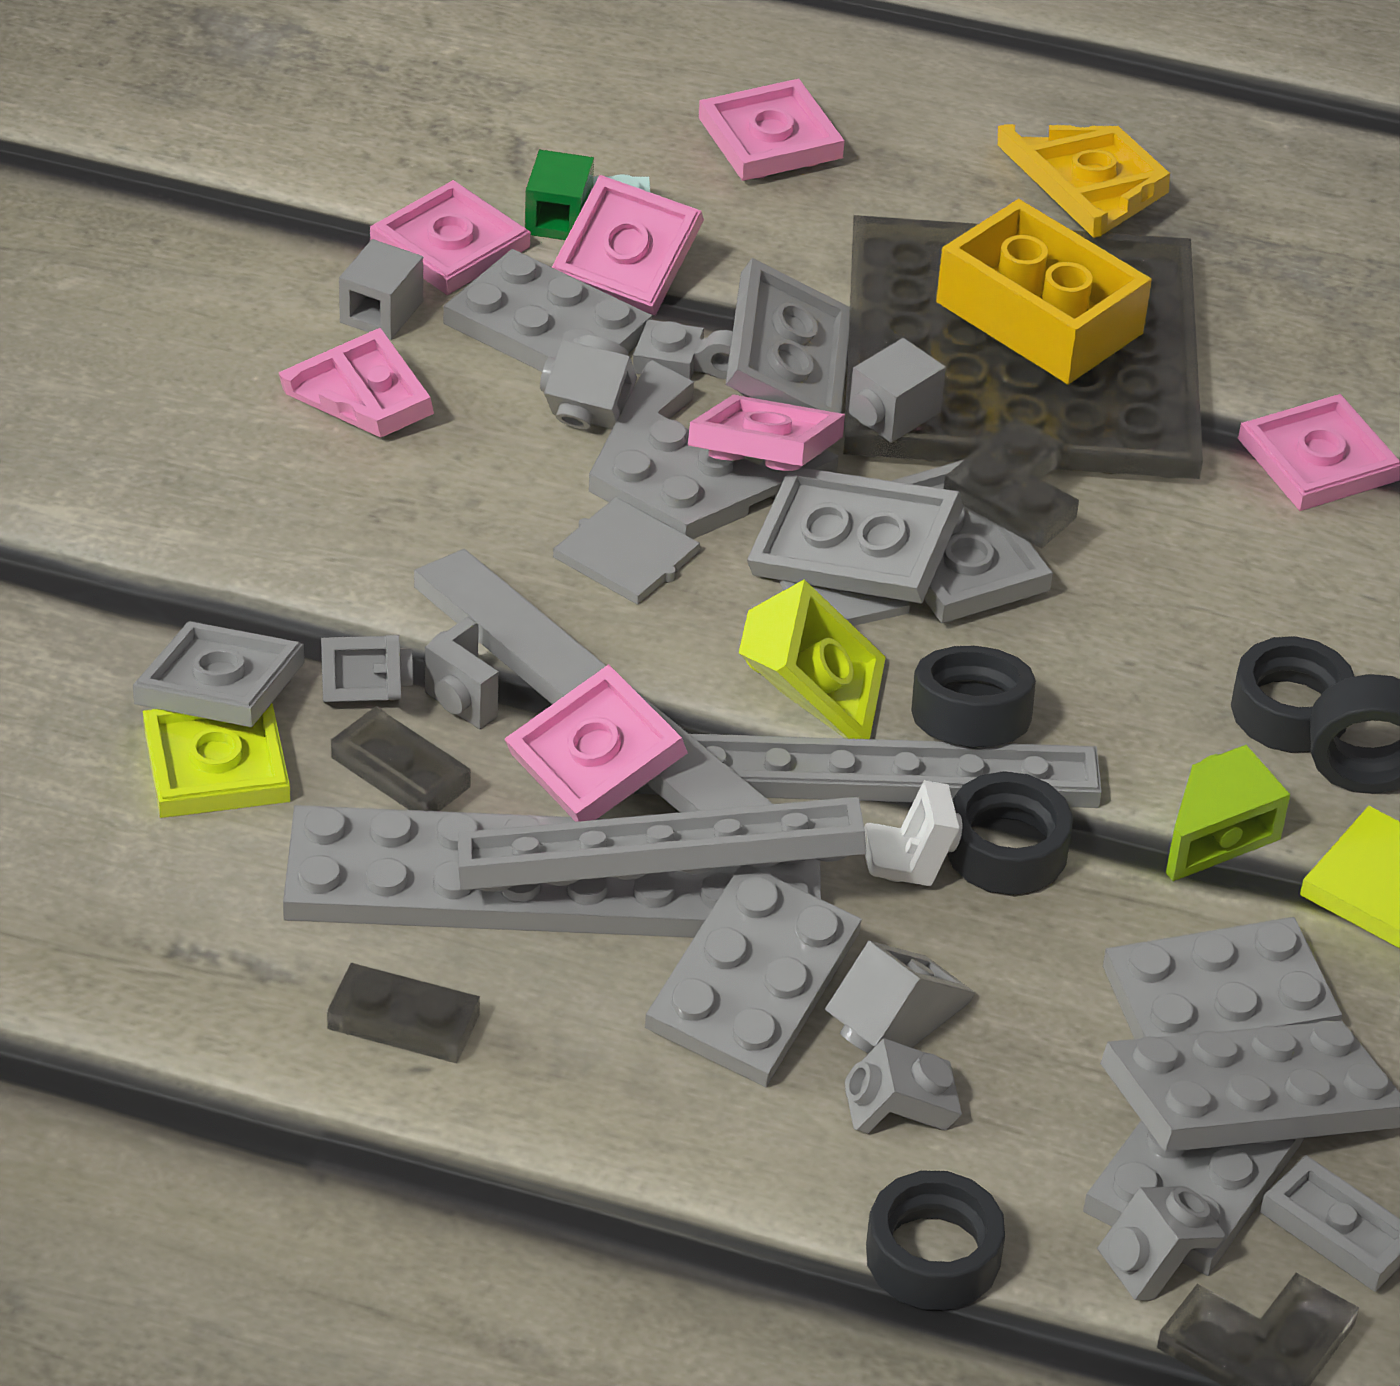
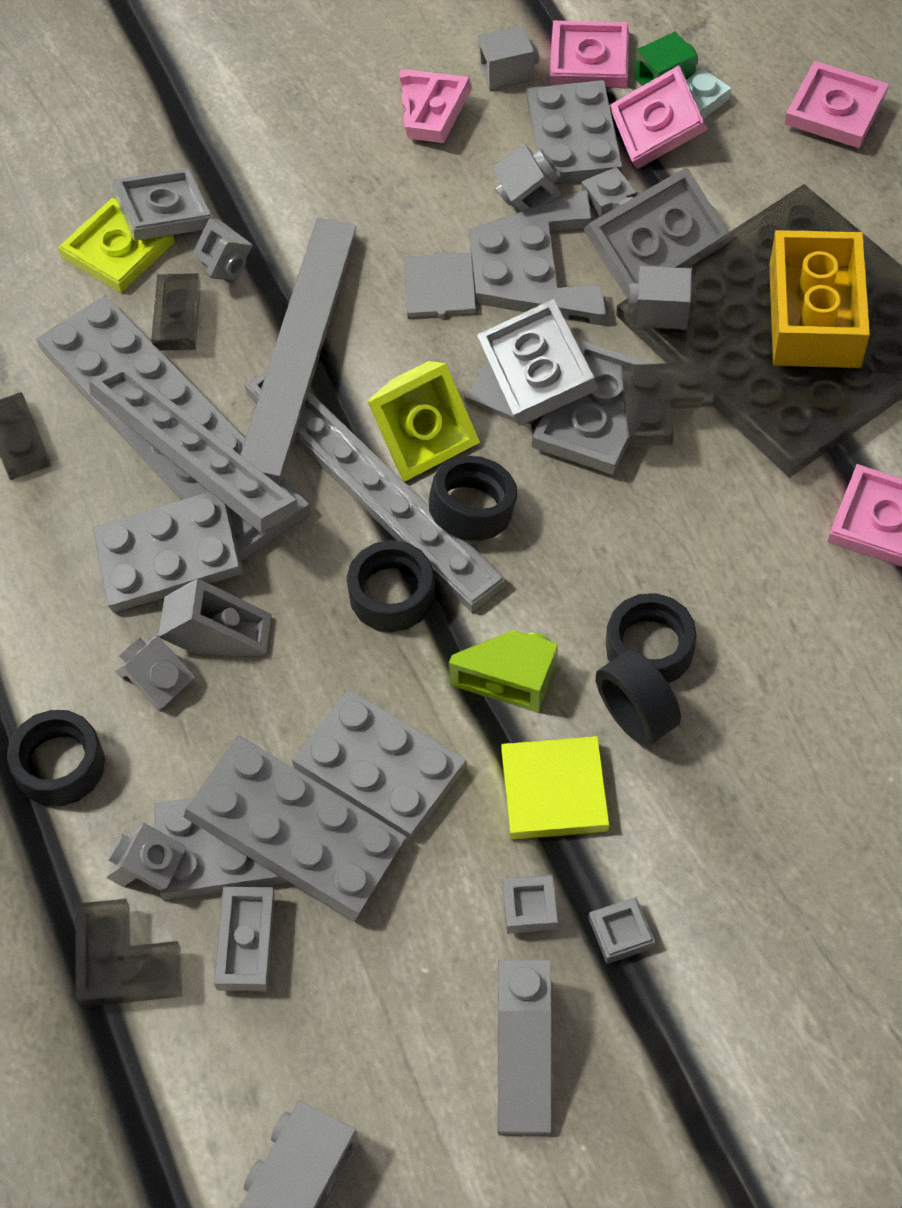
camera: 55 degrees right, 15 degrees up
(459, 677) = (259, 278): light grey bracket -> none
(596, 746) = (240, 371): bright pink plate -> none
(765, 430) = (565, 269): bright pink plate -> none
(922, 842) = (330, 549): white bracket -> none

